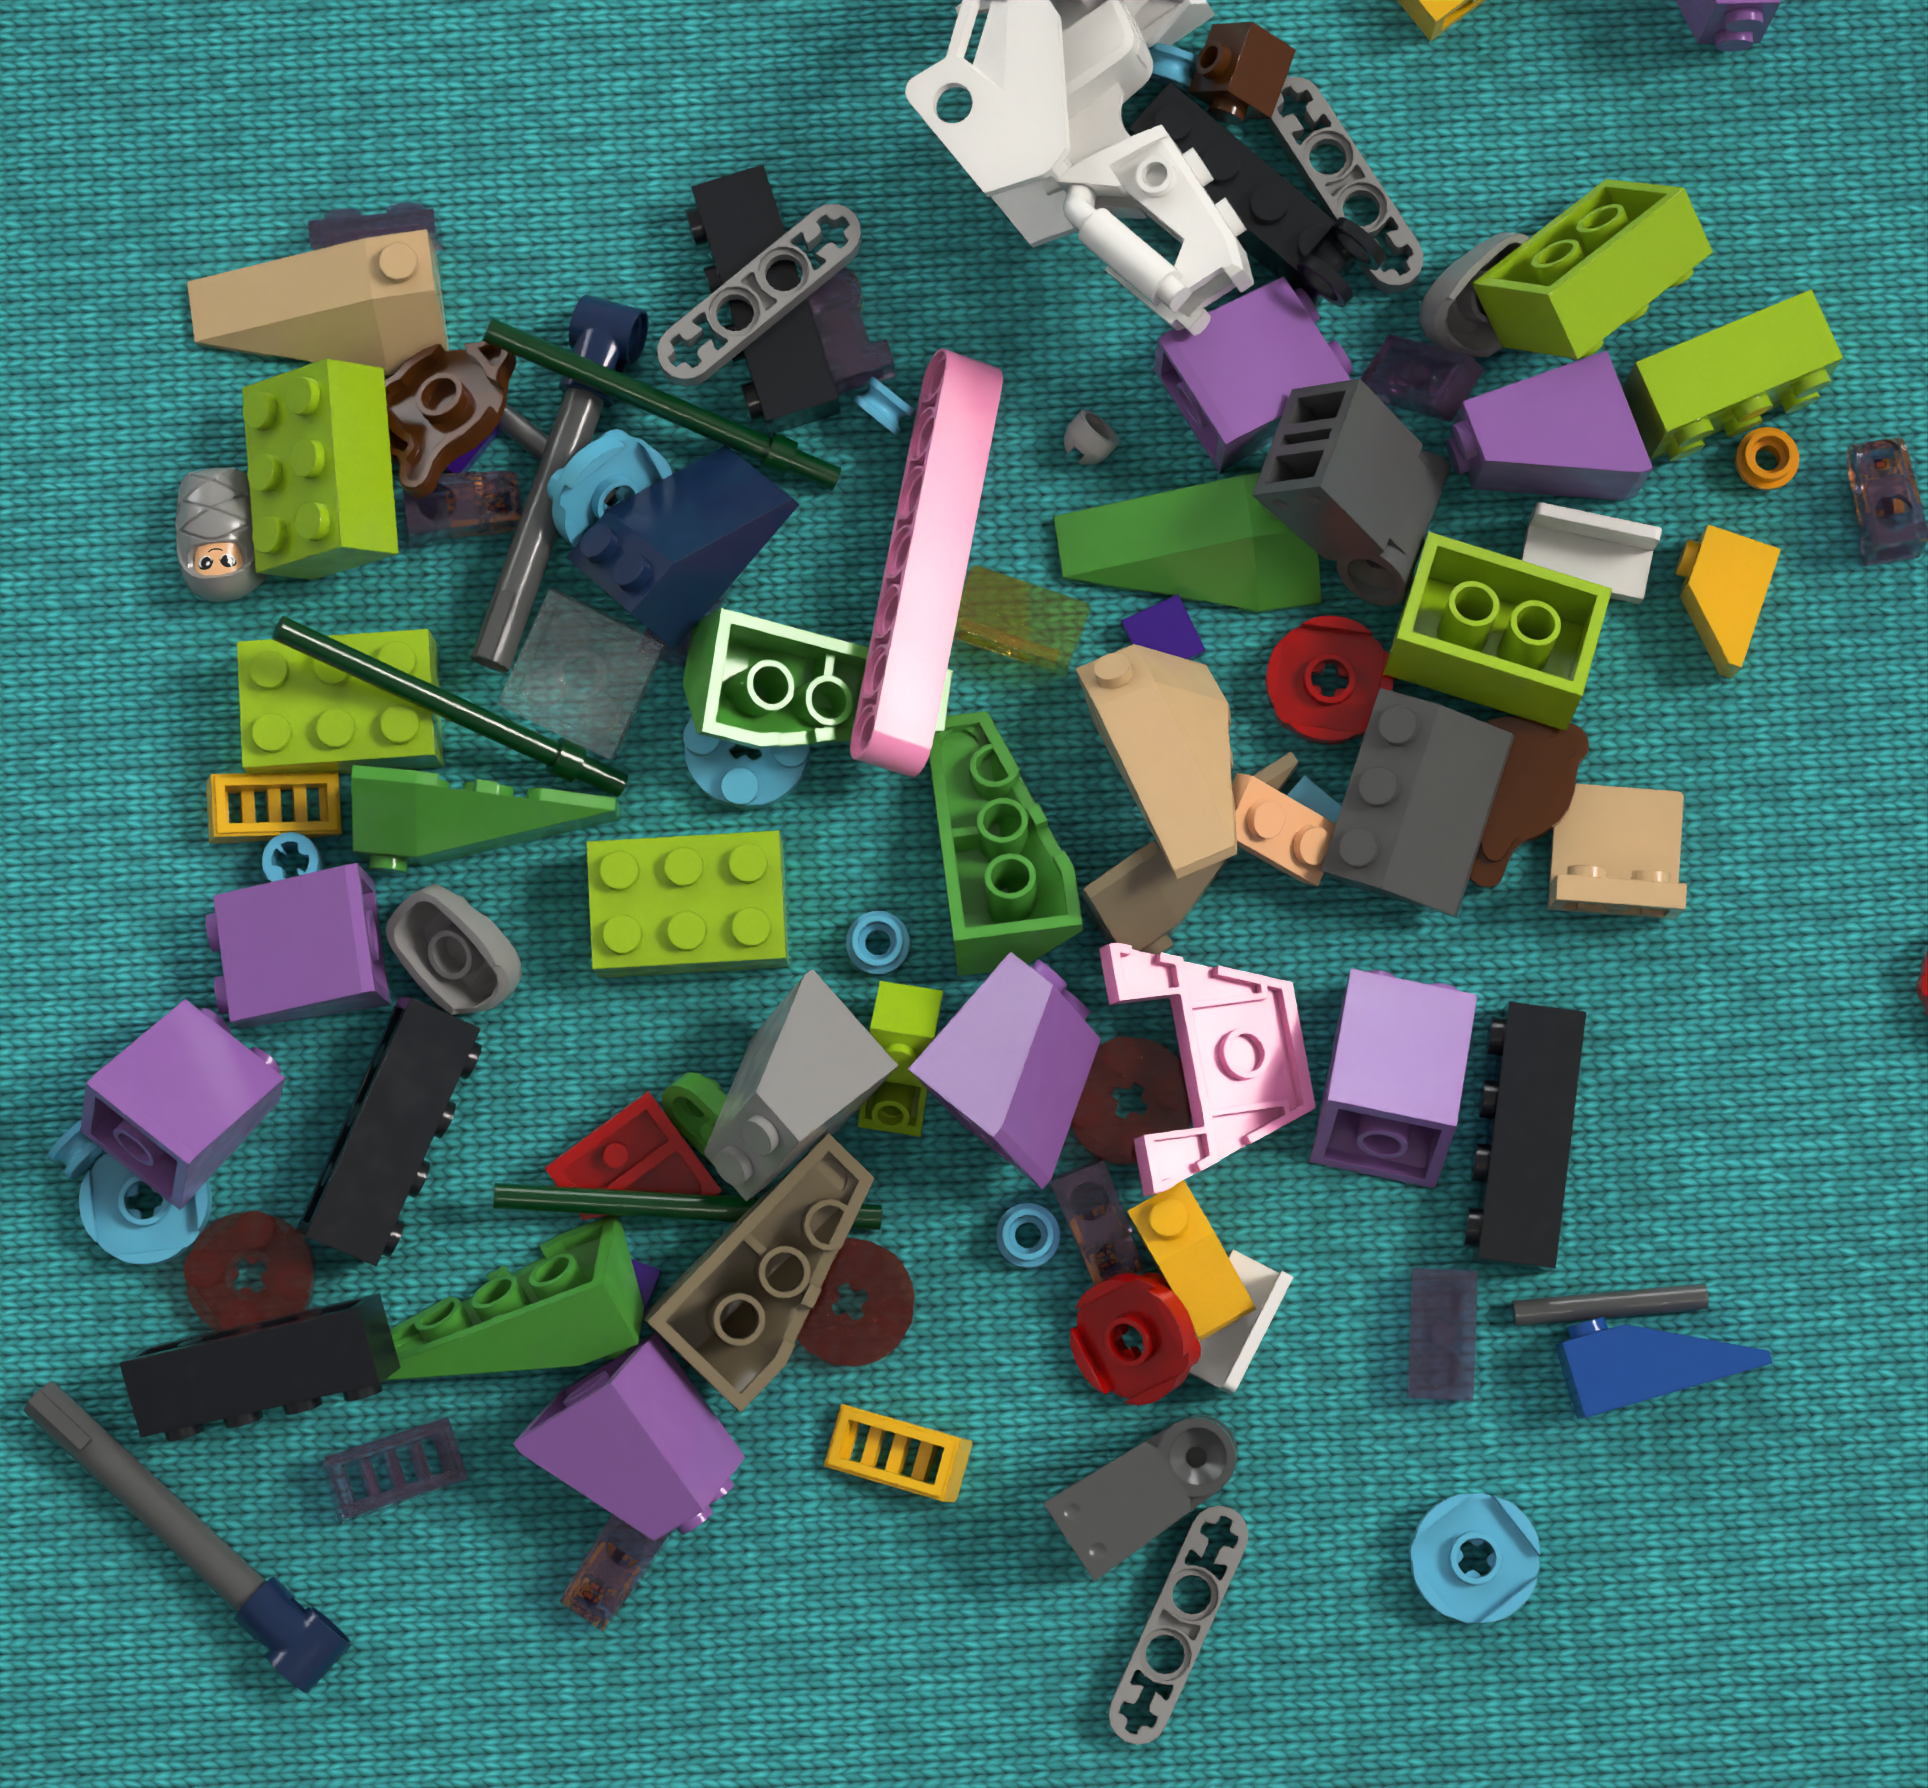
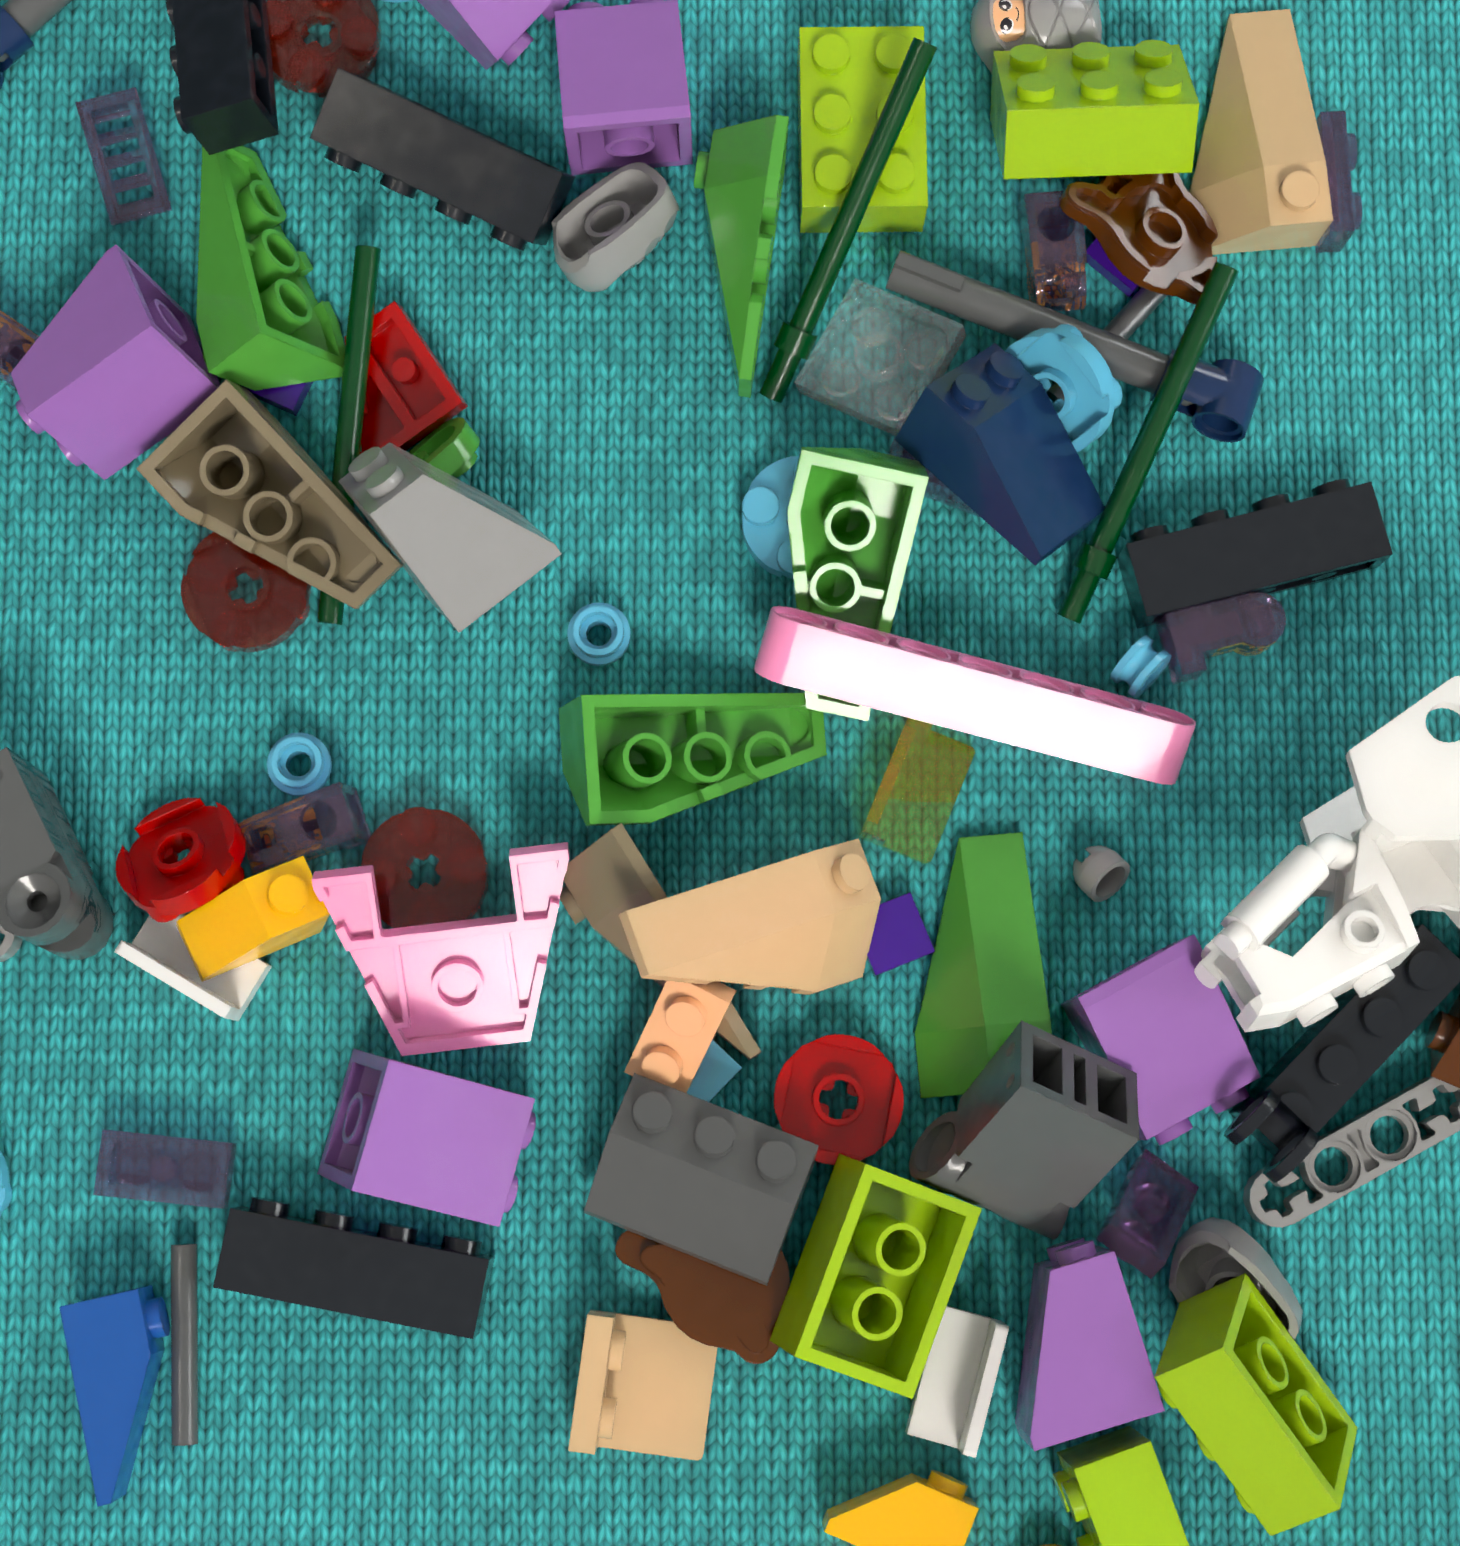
camera: 90 degrees right, 0 degrees up
(220, 785) = (768, 19): yellow slope -> none
(278, 844) = (726, 97): medium azure bush -> none
(687, 904) = (644, 449): lime brick -> none
(752, 287) = (1265, 534): light grey beam -> none
(904, 1026) = (492, 651): lime slope -> none
(951, 1466) = (106, 660): yellow slope -> none
(1014, 1064) = (452, 750): medium lavender slope -> none

